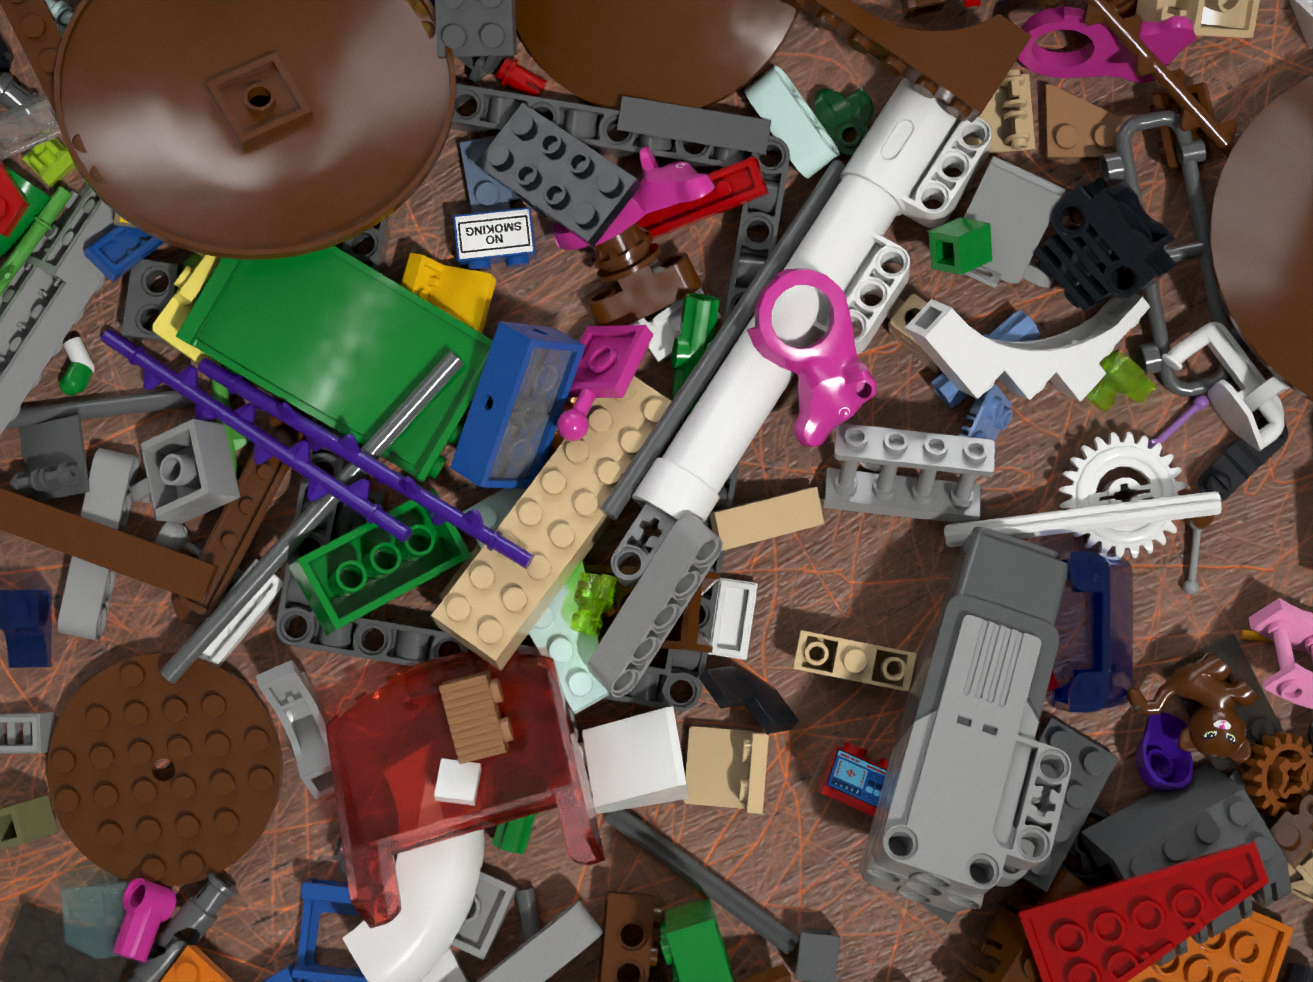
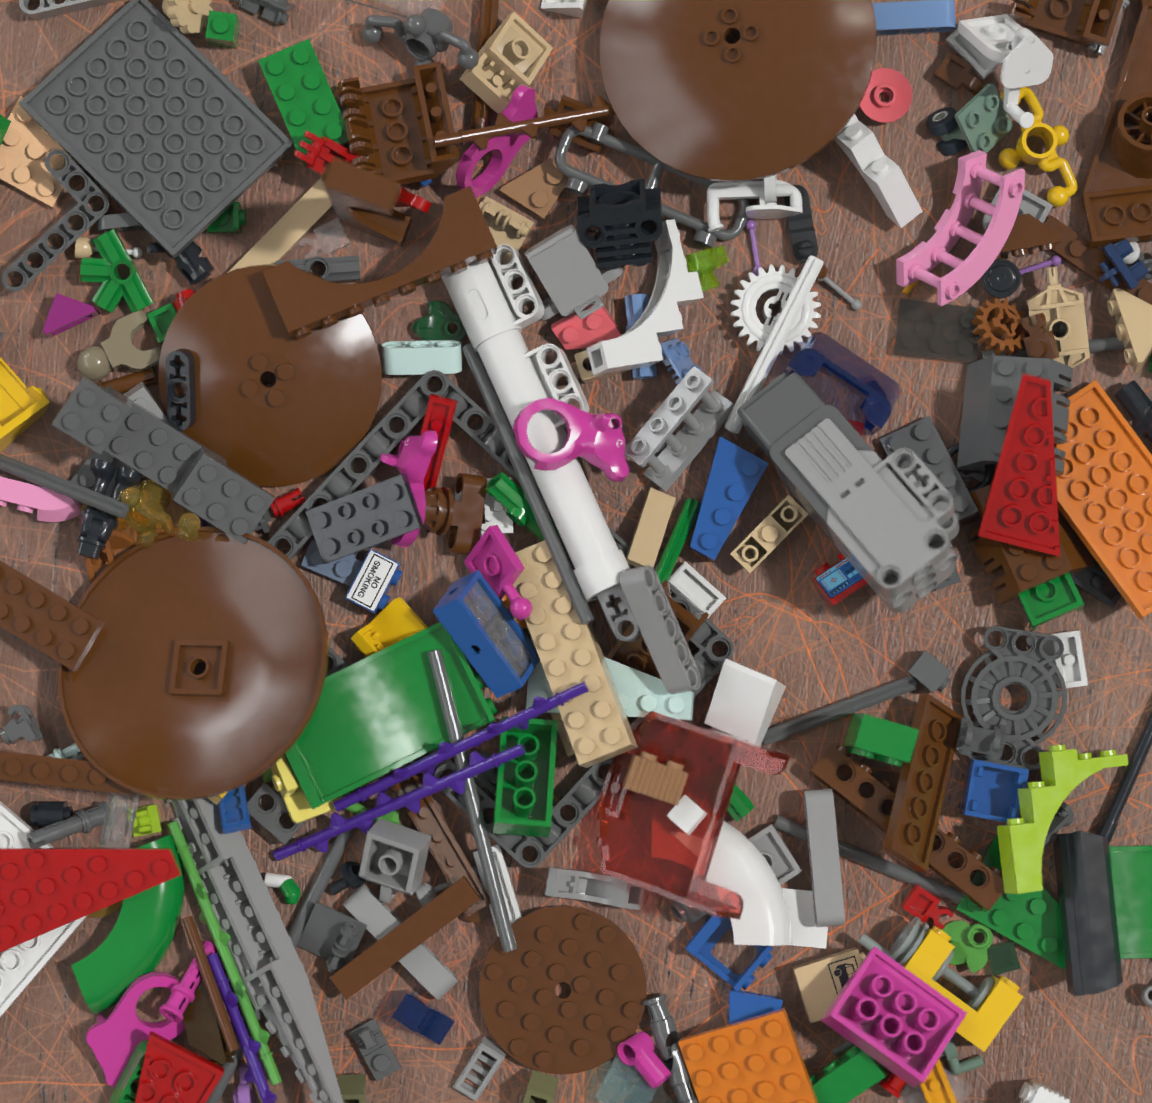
camera: 65 degrees left, 0 degrees up
(134, 434) = (350, 877): none -> black plate
(593, 596) = (630, 663): clear neon green piece -> none
(694, 125) = (386, 417): dark grey sticker -> none
(726, 768) = (783, 651): tan bracket -> none
(734, 688) = (738, 616): black tile -> none
(775, 557) = (677, 539): none -> green axle
(873, 578) = (727, 490): none -> blue wedge
(960, 246) = (565, 309): green brick -> none
(961, 292) = (585, 332): none -> coral wing
(1159, 759) = (943, 386): dark purple cap -> none
(1216, 726) = (947, 346): reddish brown animal -> none

